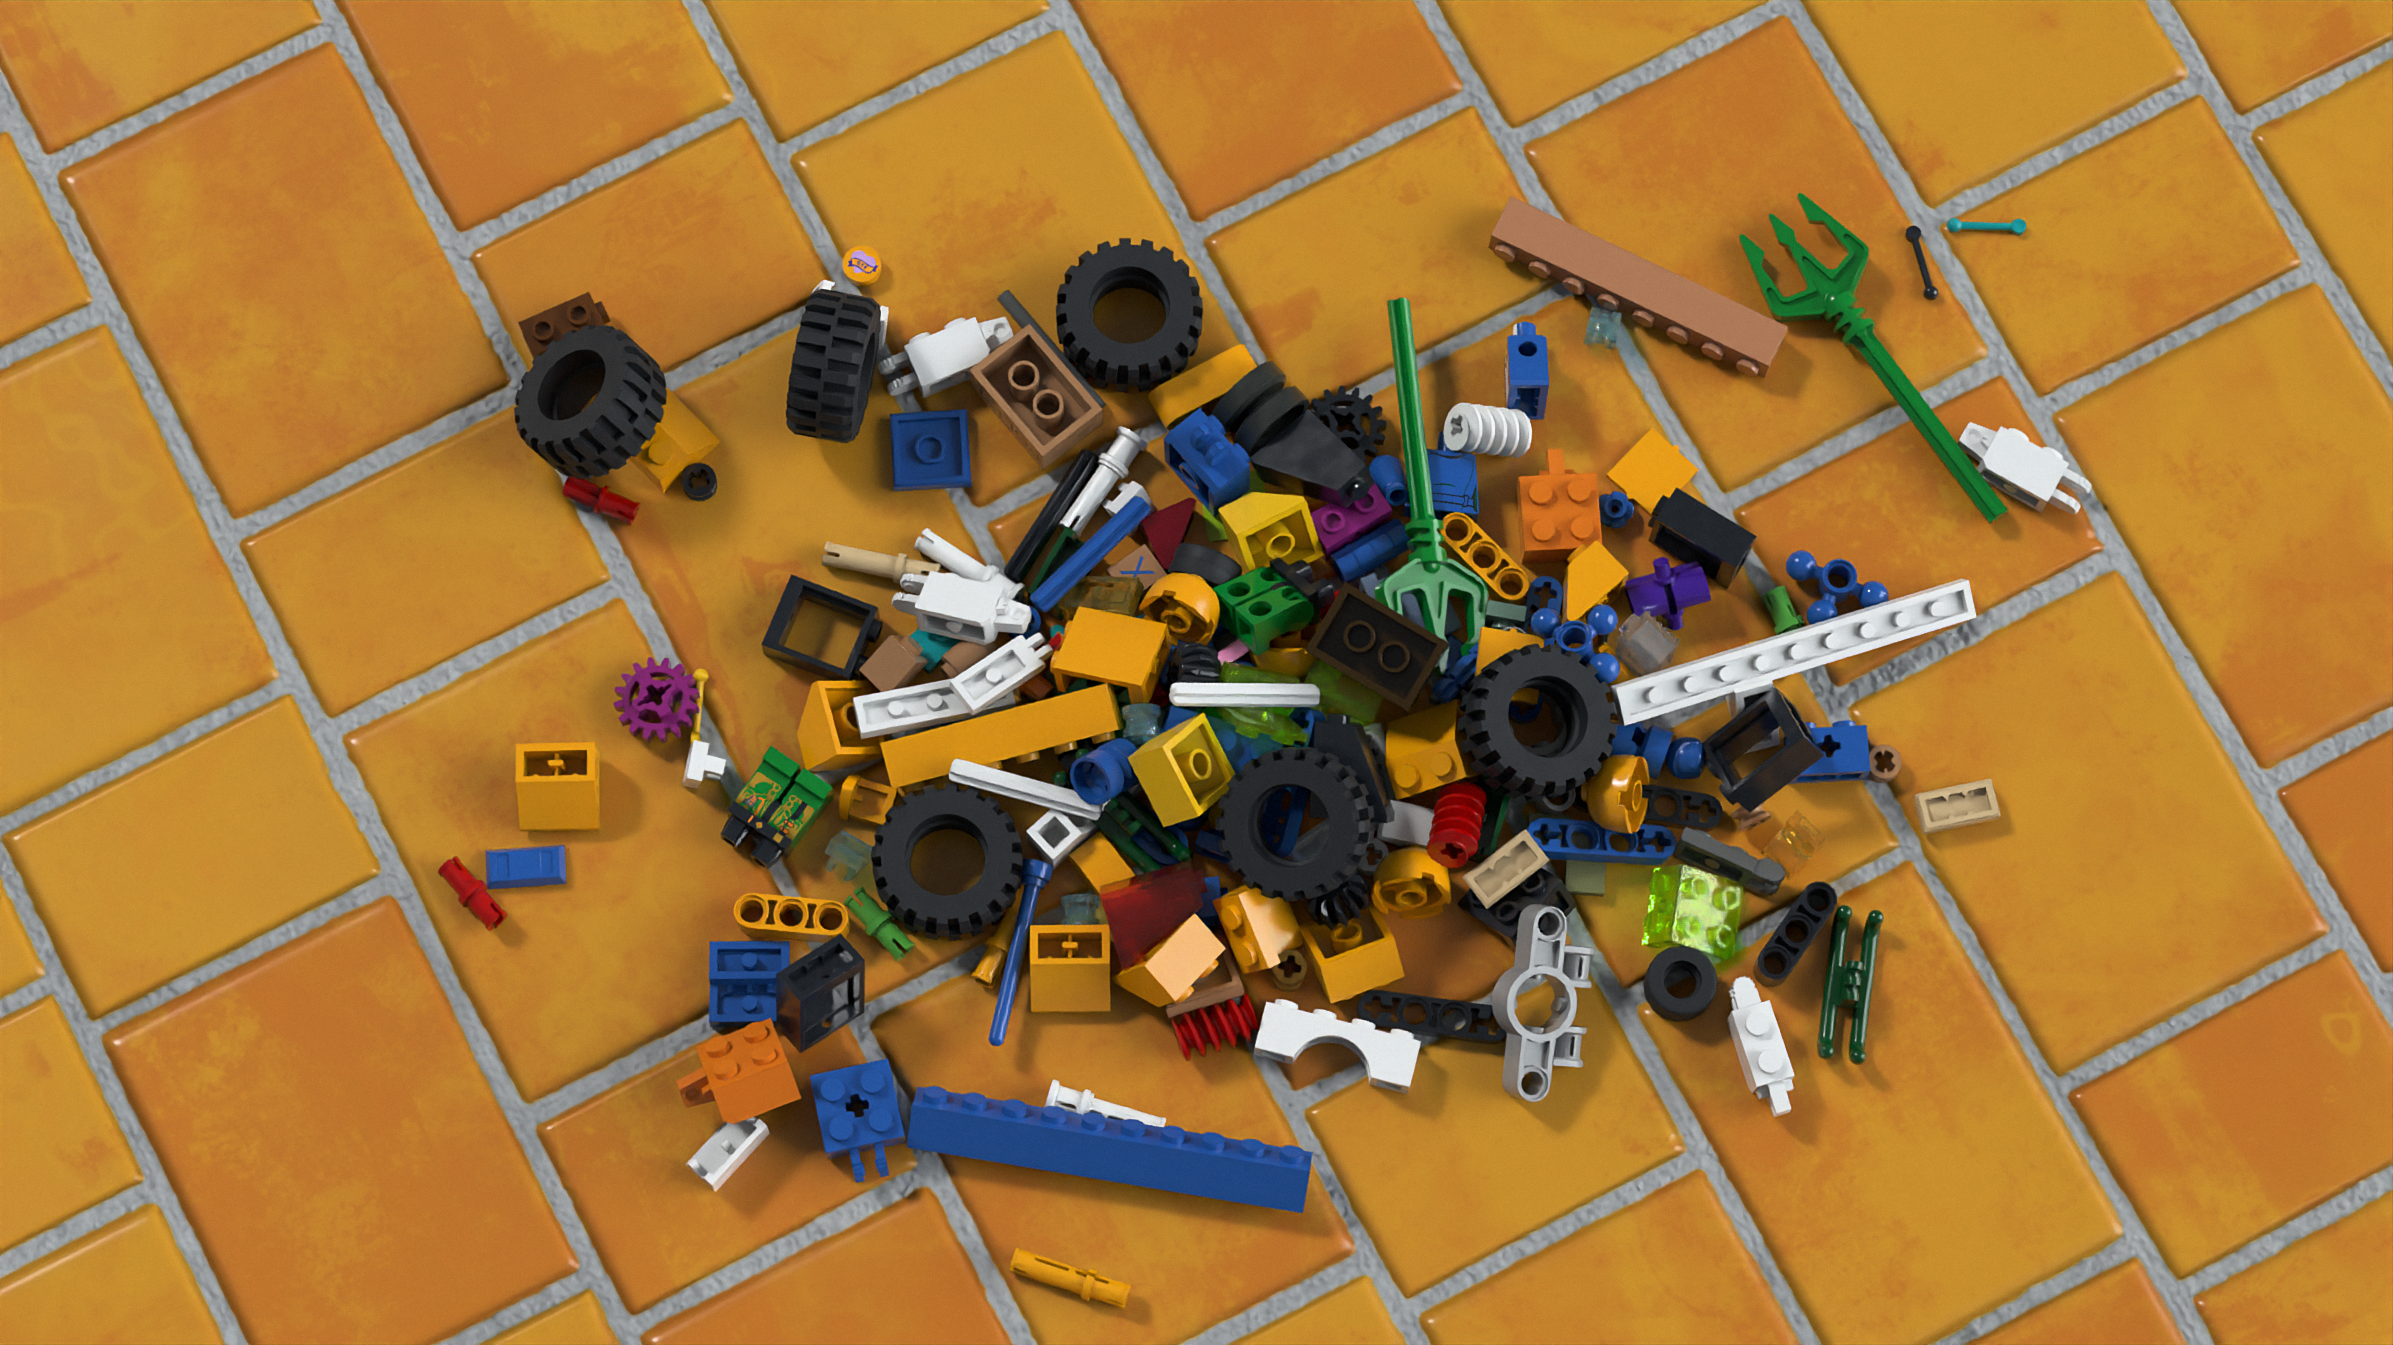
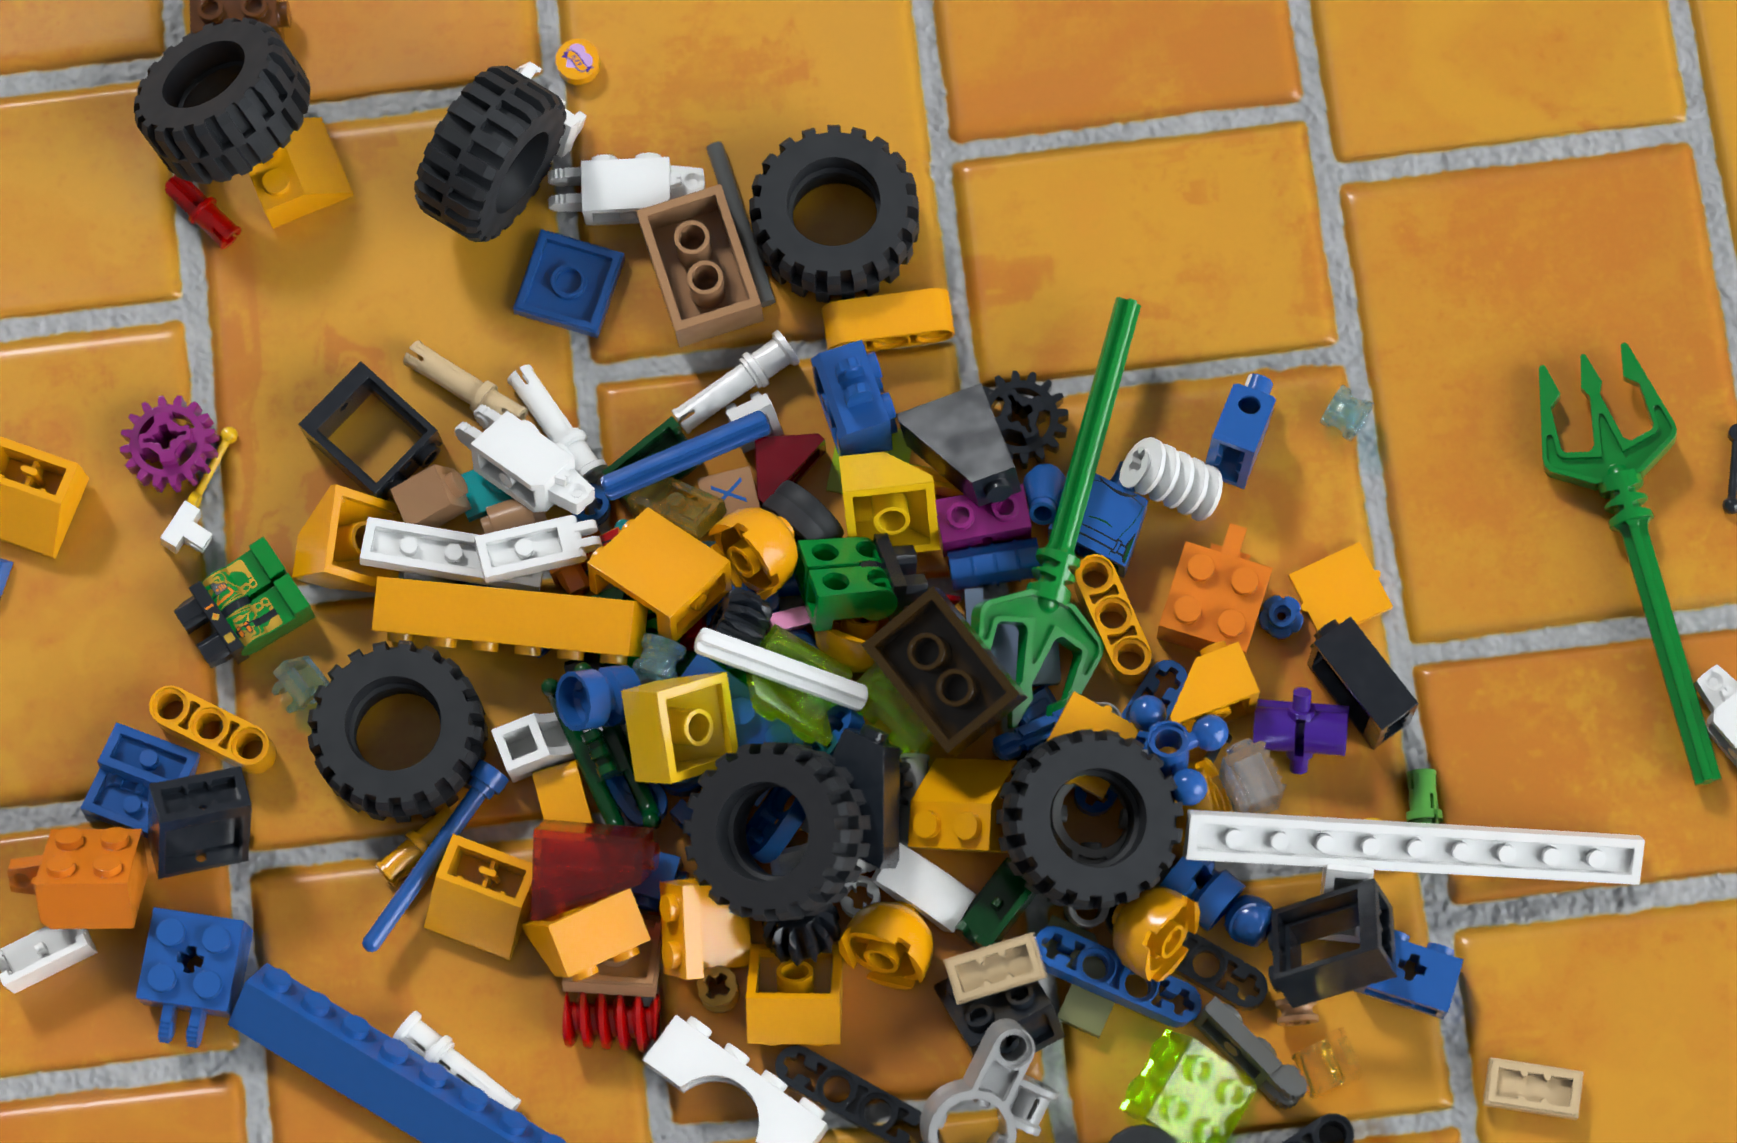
camera: 30 degrees right, 0 degrees up
(697, 470) = (317, 217): black bush -> none
(865, 800) = (343, 630): light orange tile -> none
(879, 924) = (303, 771): bright green pin -> none
(1022, 788) = (503, 681): white axle -> none
(1051, 515) = (666, 399): black axle -> none
(1080, 909) = (517, 838): clear light blue wheel -> none
(1259, 407) = (930, 361): pearl dark grey wheel -> none
(1456, 824) = (960, 898): red piece -> none
(1503, 615) = (1110, 688): sand green plate -> none
(1637, 287) = (1404, 383): nougat brick -> none
(1803, 566) = (1465, 756): blue piece -> none
(1895, 763) = (1482, 1014): medium nougat bush -> none

